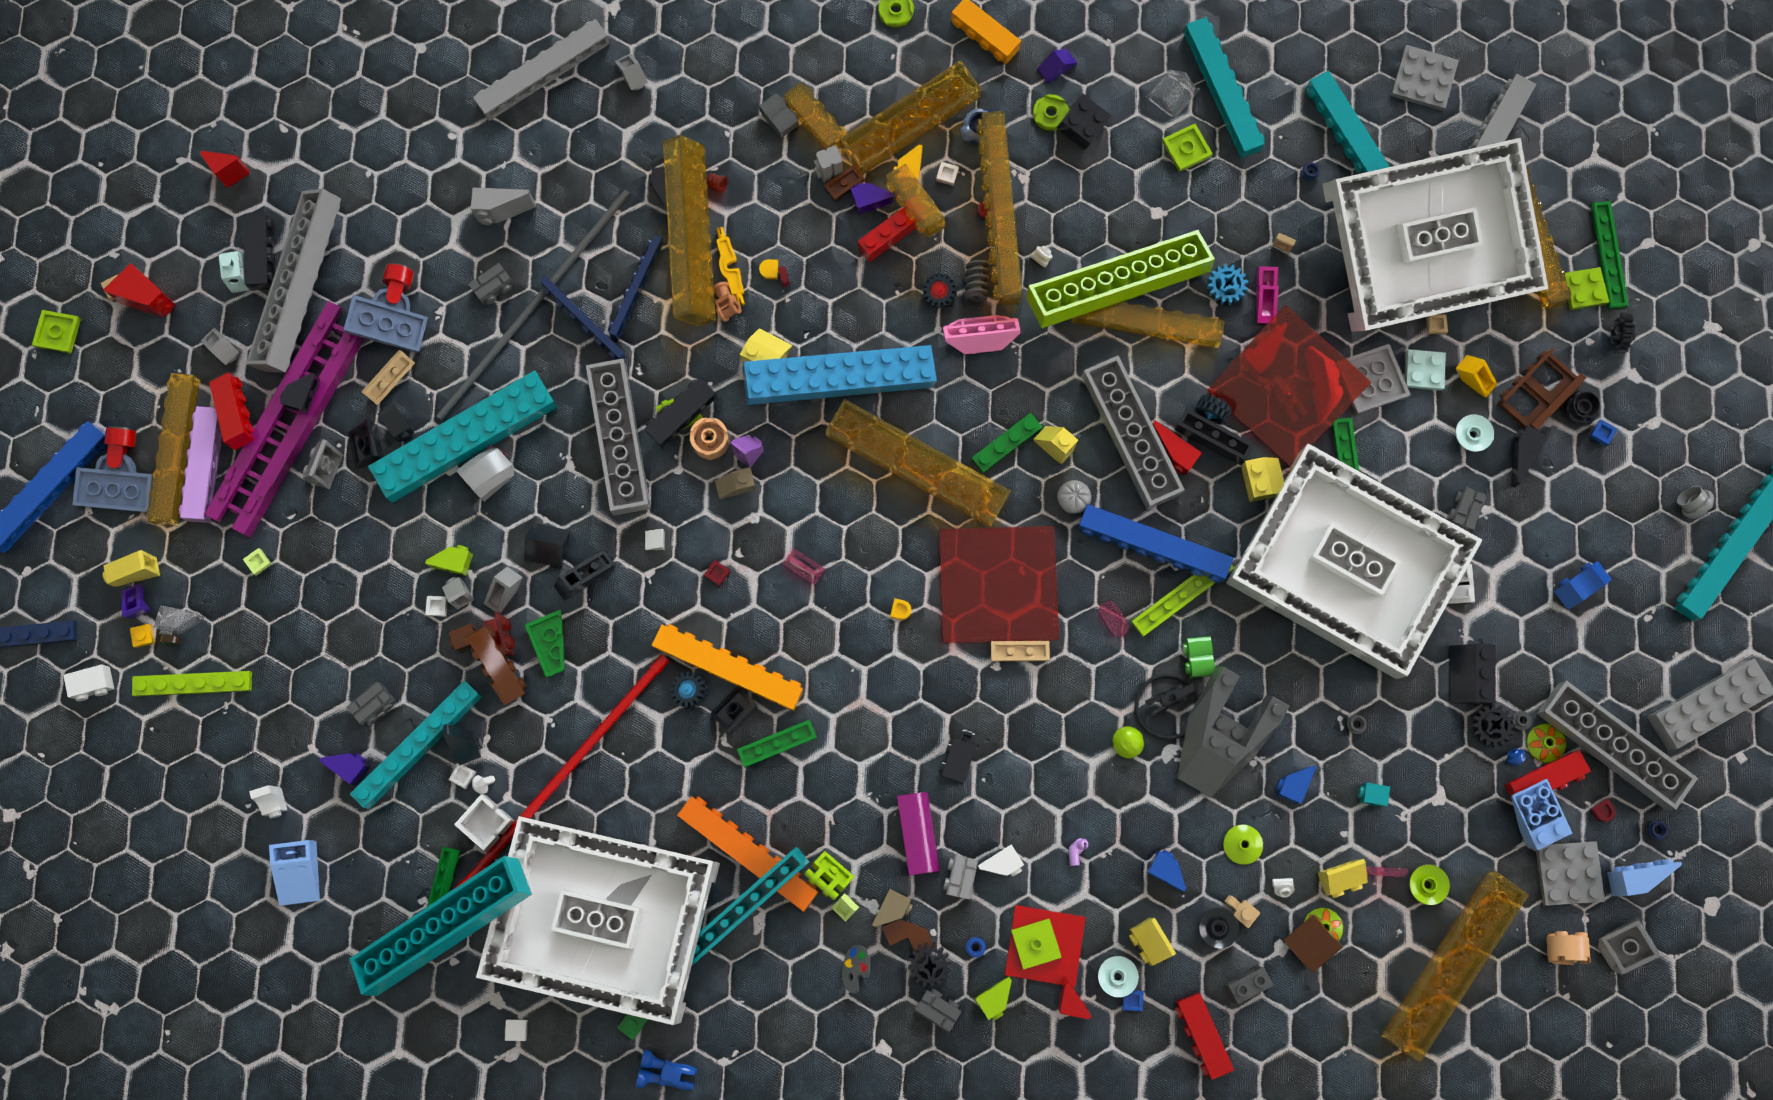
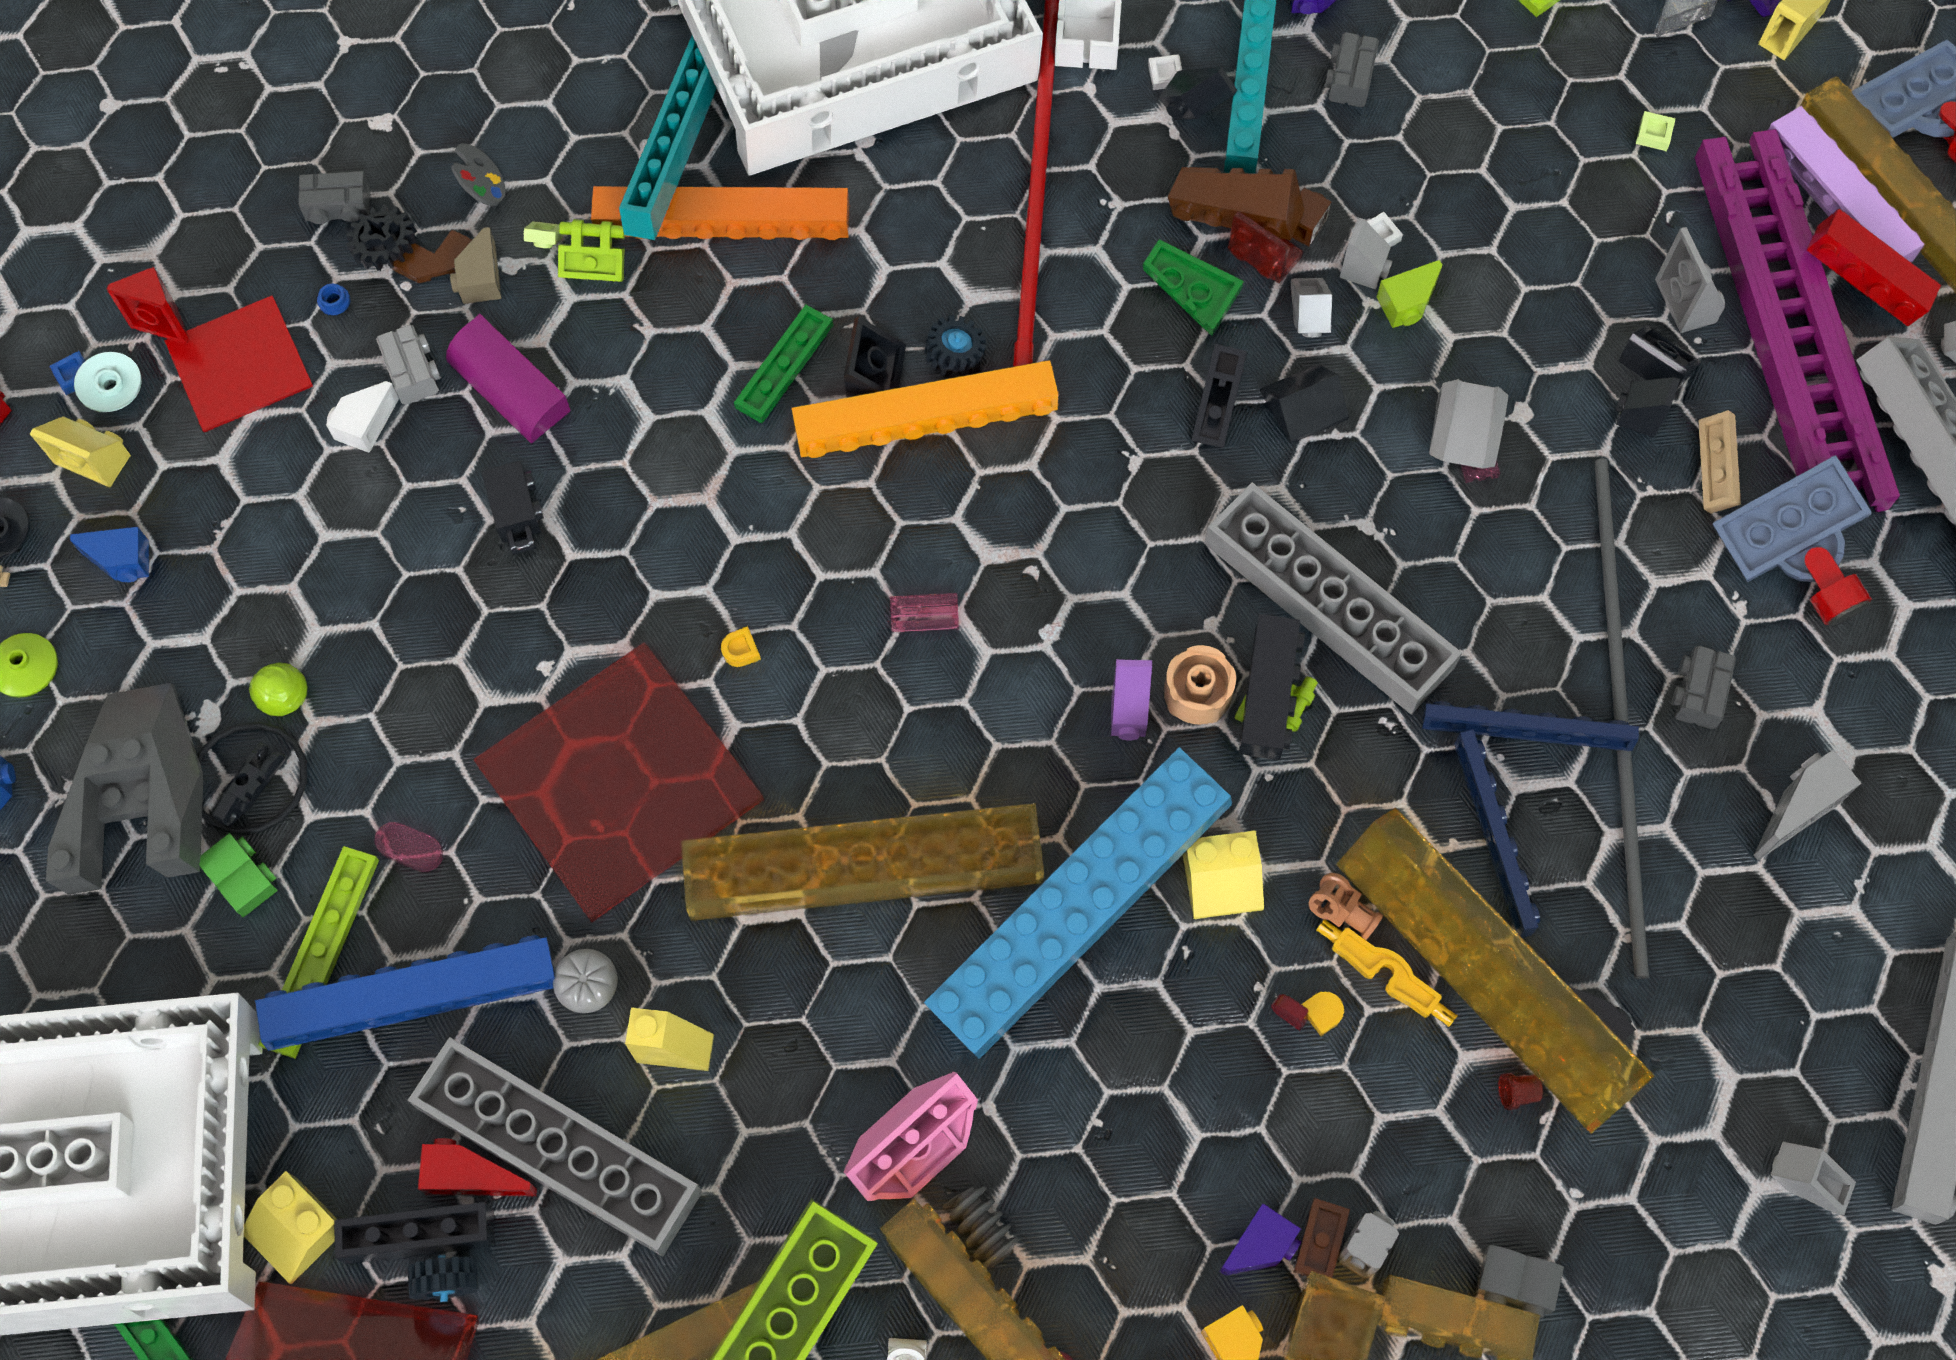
camera: 145 degrees right, 10 degrees down
(300, 393) = (1804, 338): black slope -> none
(462, 437) = (1542, 458): teal brick -> none
(480, 784) = (1133, 75): white plate -> none
(655, 539) = (1162, 506): white slope -> none
(717, 573) = (1040, 522): dark red tile -> none
(735, 483) = (1099, 660): dark tan slope -> none
(886, 235) = (1180, 1213): red brick -> none
(915, 200) = (1175, 1270): clear yellow brick -> none
(939, 290) = (1029, 1165): black wheel -> none
(995, 999) = (267, 254): lime slope -> none
(1006, 443) = (750, 999): green plate -> none
(1019, 651) = (520, 704): tan plate -> none
(1036, 943) = (250, 353): lime plate -> none
(1075, 849) = (268, 501): lavender arm -> none

